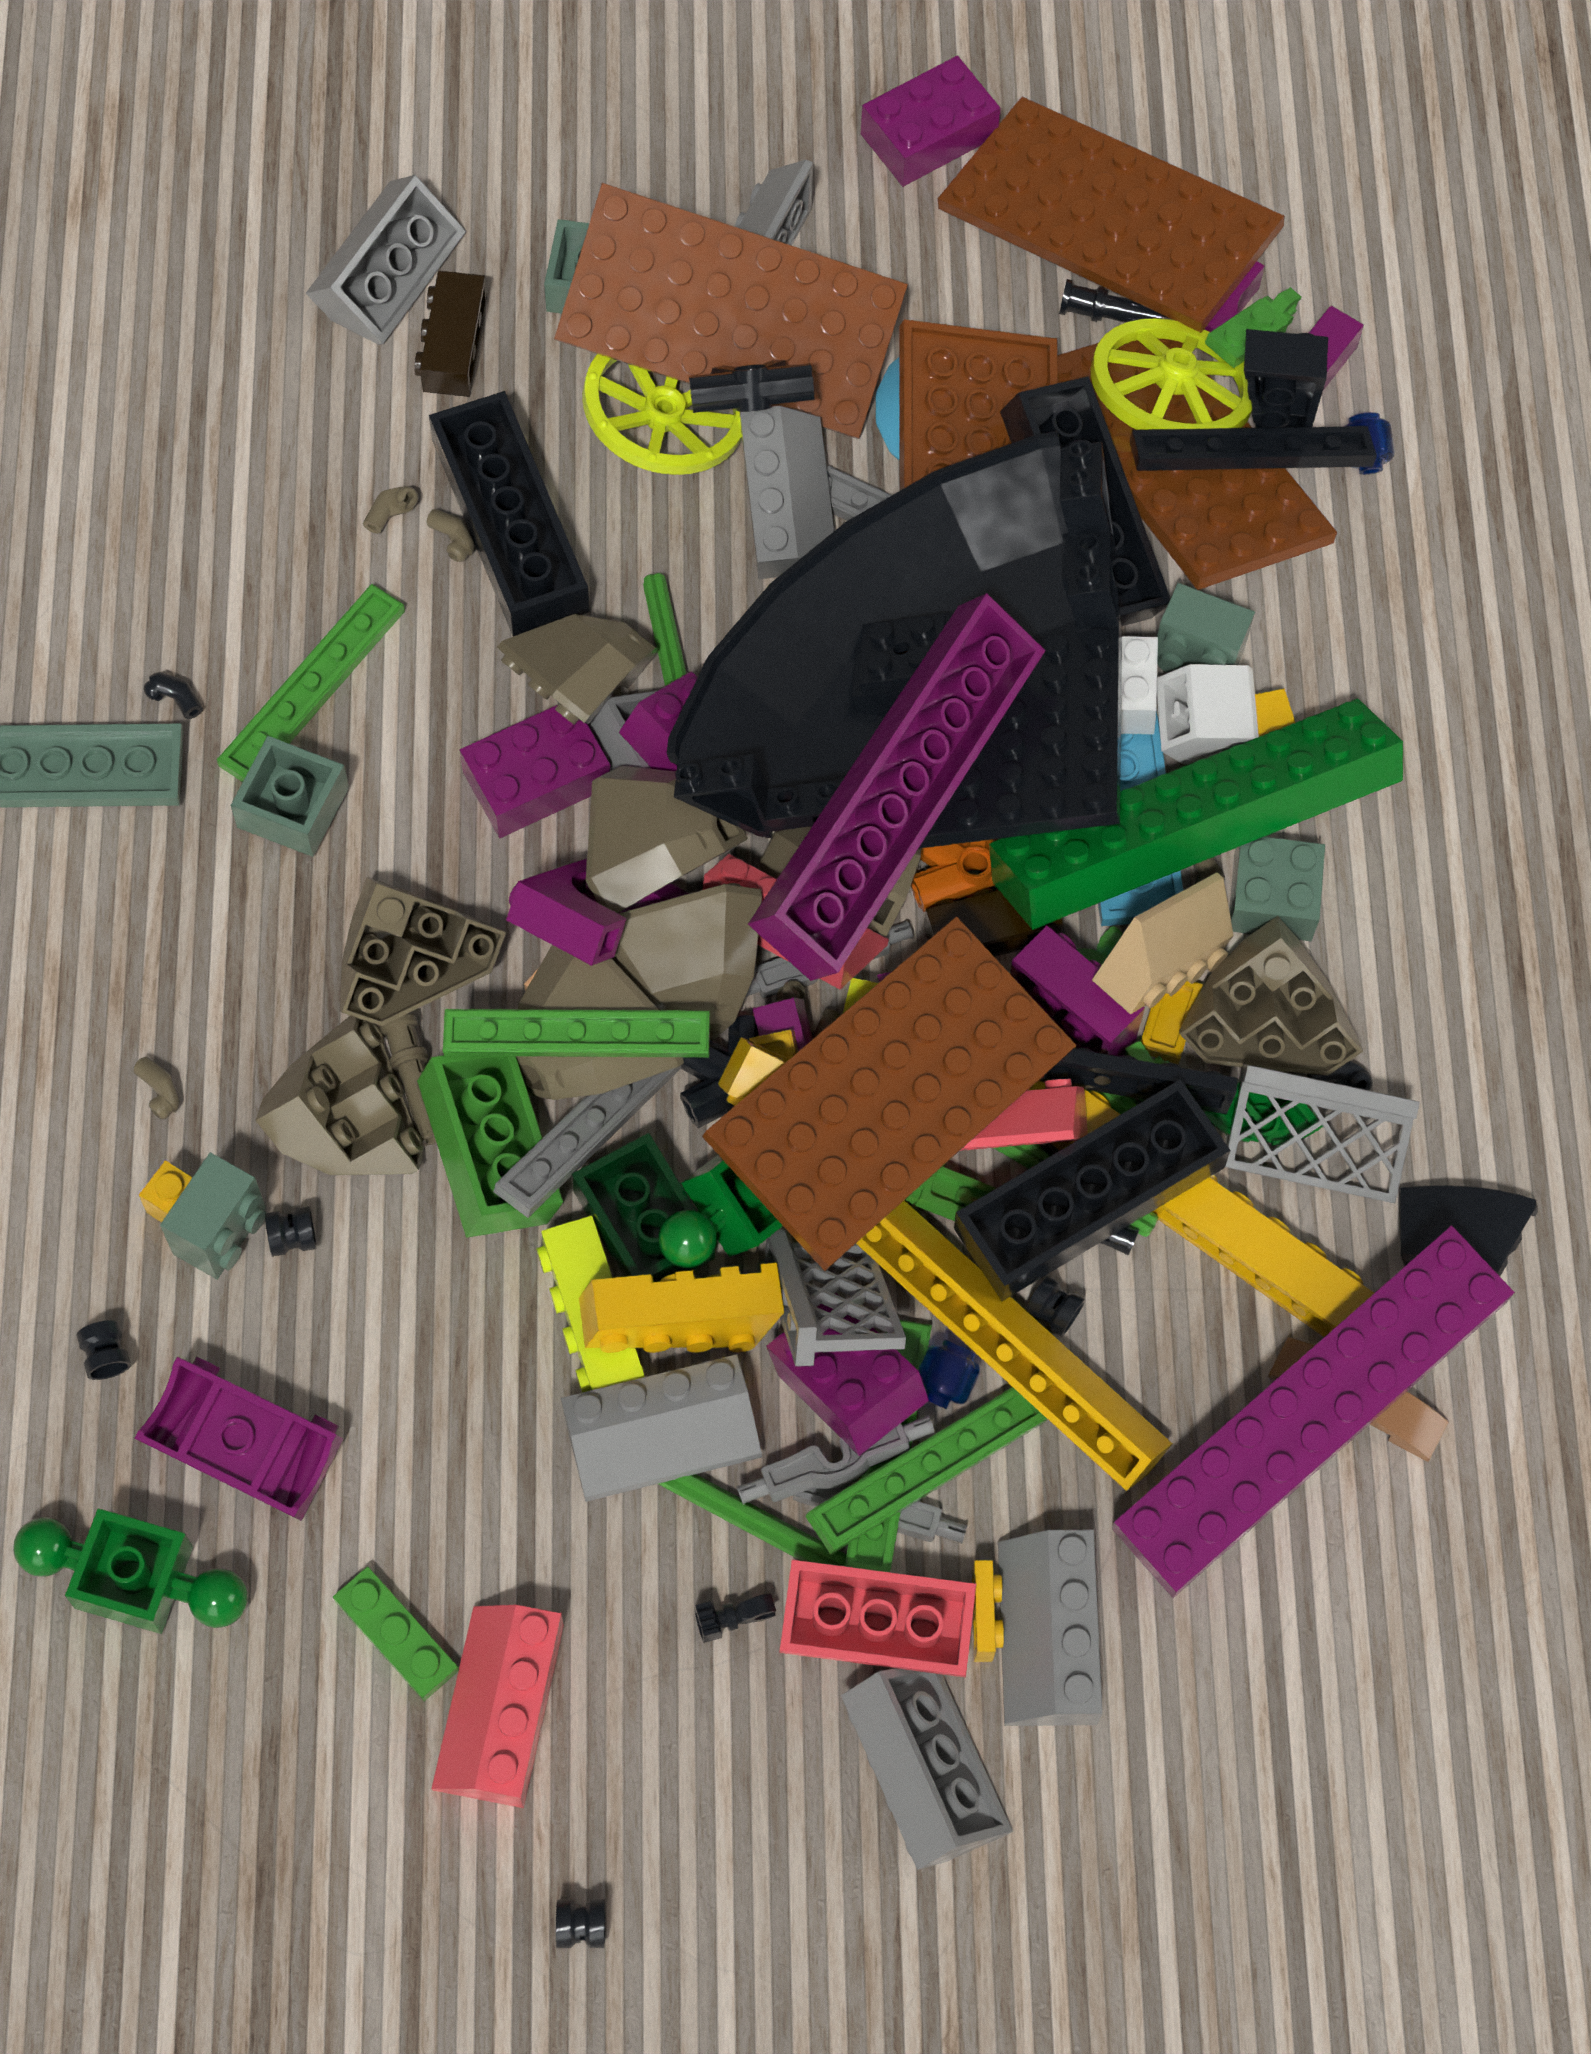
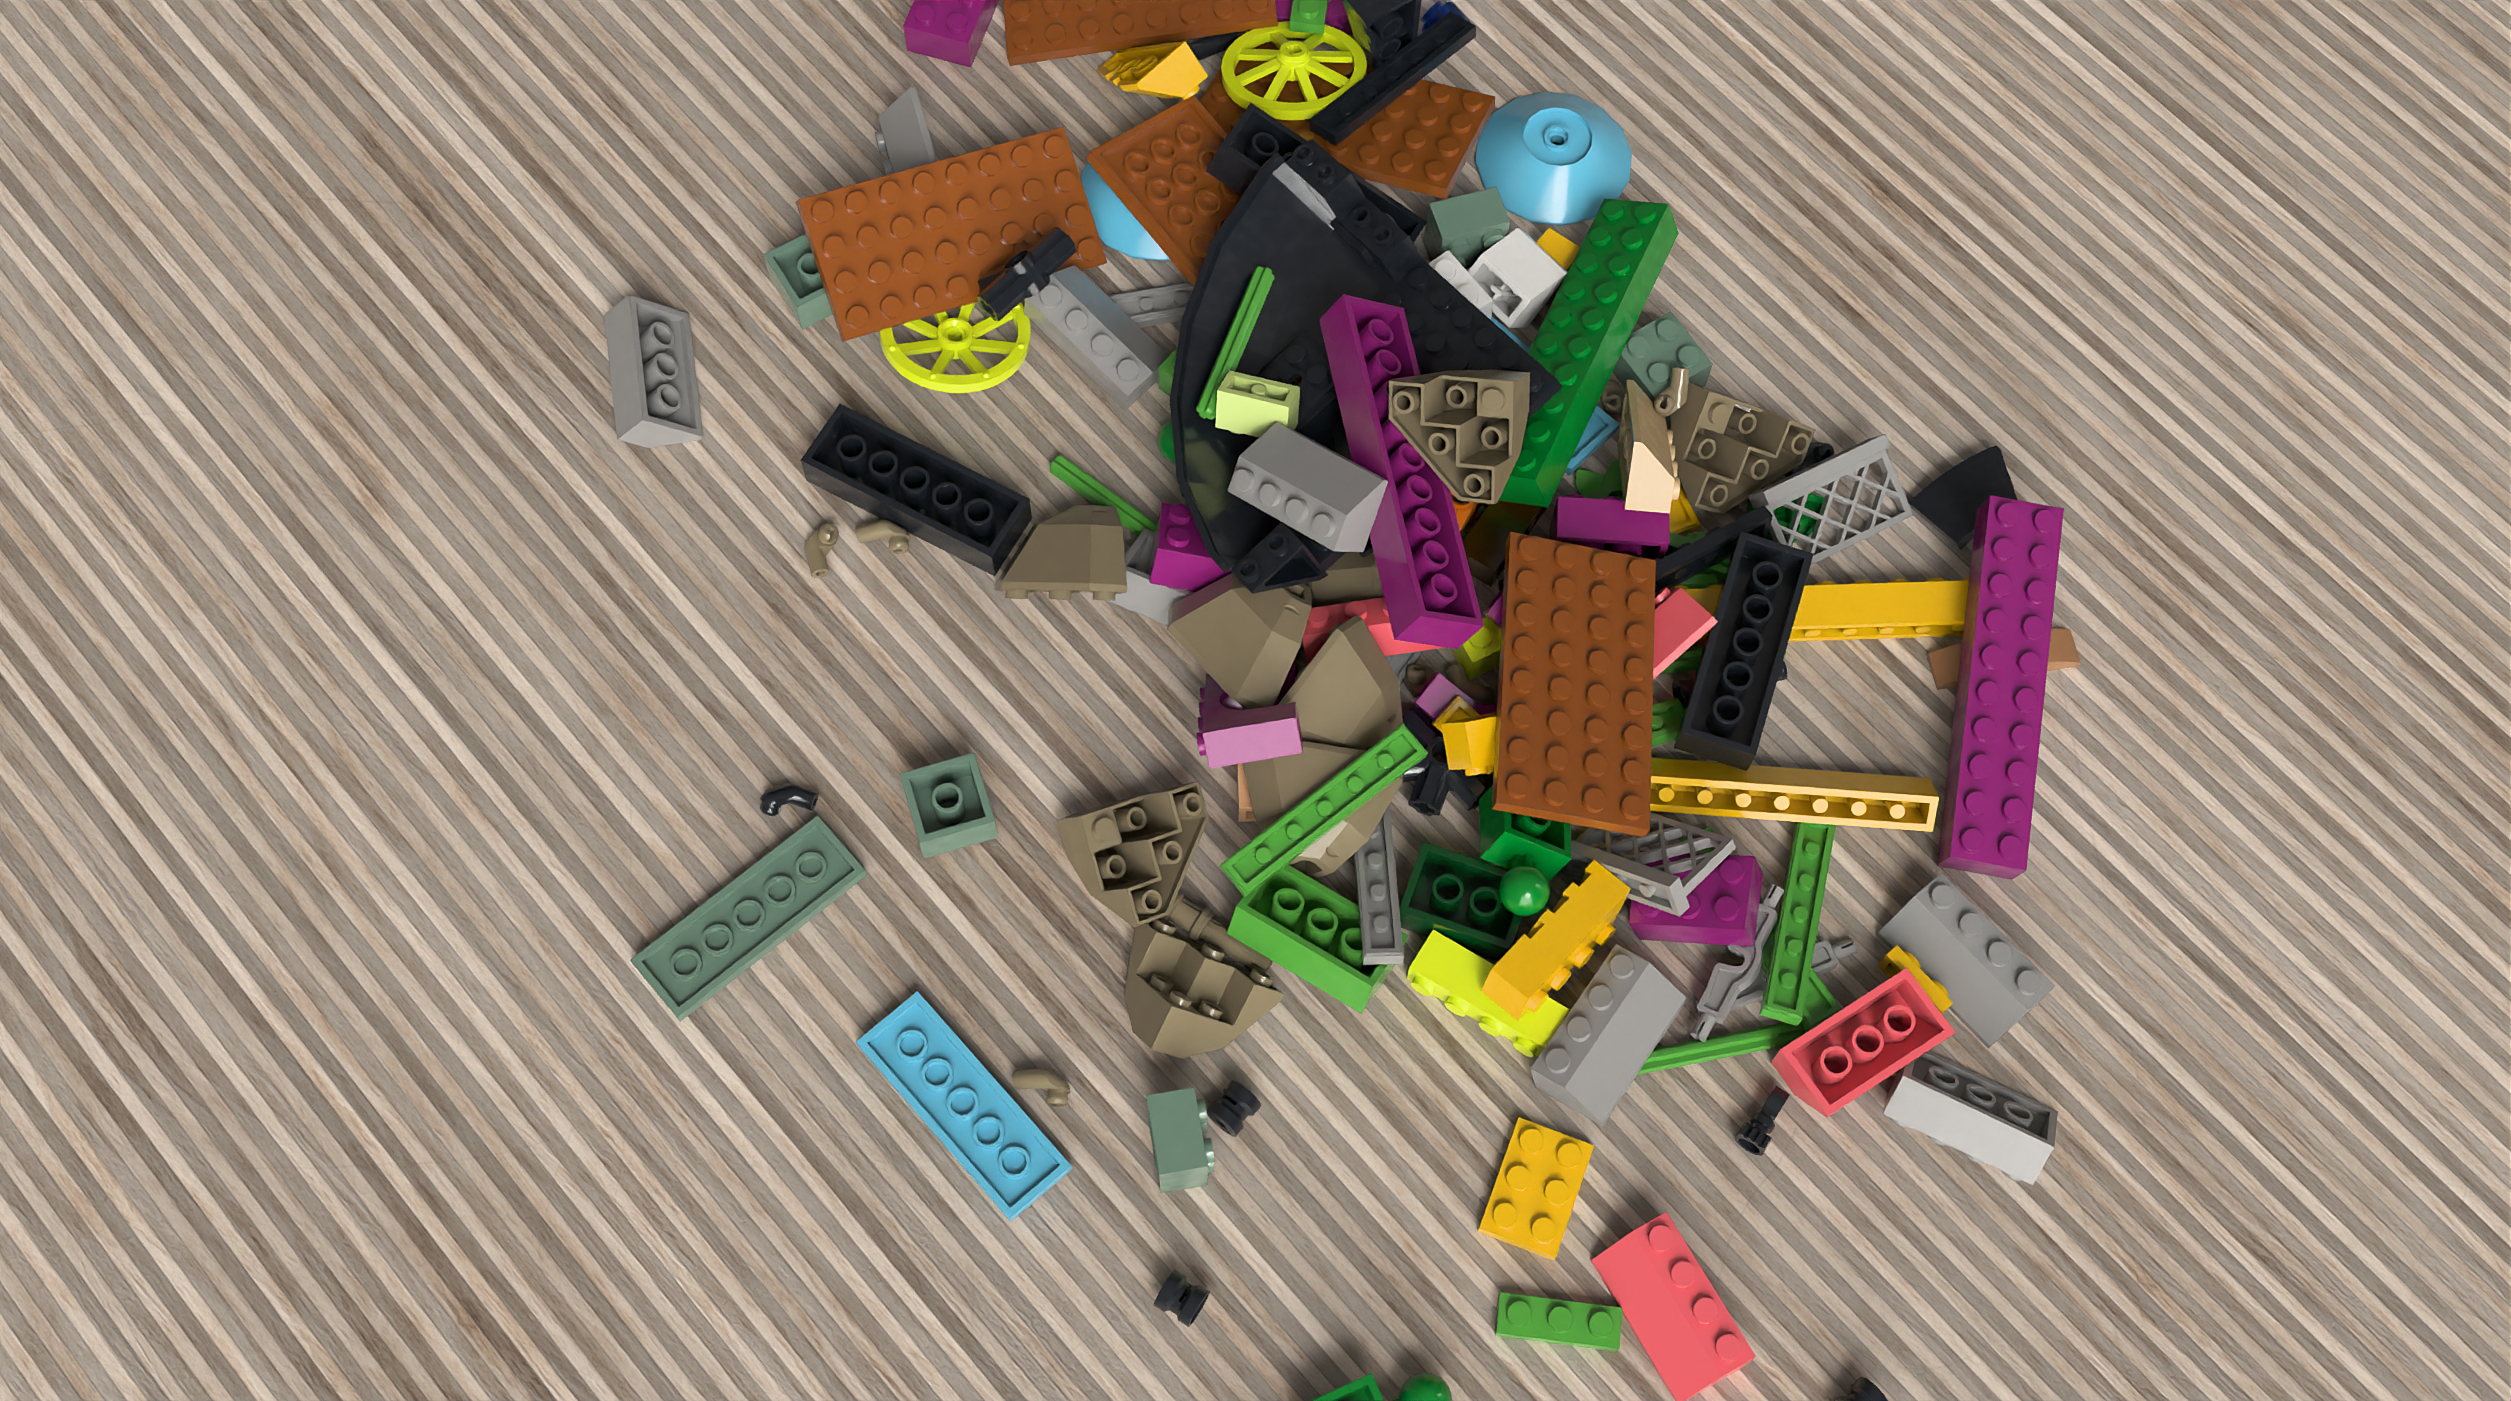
camera: 40 degrees left, 0 degrees up
(79, 1053) = (964, 1106): none -> medium azure plate
(163, 1190) = (1131, 1152): yellow brick -> none
(241, 1438) = (1336, 1278): magenta piece -> none
(315, 678) = (881, 718): bright green tile -> none
(451, 333) = (751, 392): dark brown brick -> none
(483, 1508) = (1536, 1188): none -> yellow plate
(533, 769) = (1101, 656): magenta brick -> none
(802, 743) = (1309, 488): none -> light grey slope
(836, 644) = (1255, 404): none -> yellowish green brick
(875, 576) = (1236, 338): none -> bright green axle
(949, 1373) = (1755, 840): clear blue head -> none
(988, 788) = (1464, 426): none -> dark tan brick
(1039, 295) = (1155, 70): none -> yellow wedge
(1045, 1300) = (1777, 748): black wheel -> none
(1253, 920) = (1675, 394): none -> dark tan arm
(1341, 657) = (1551, 180): none -> medium azure dish

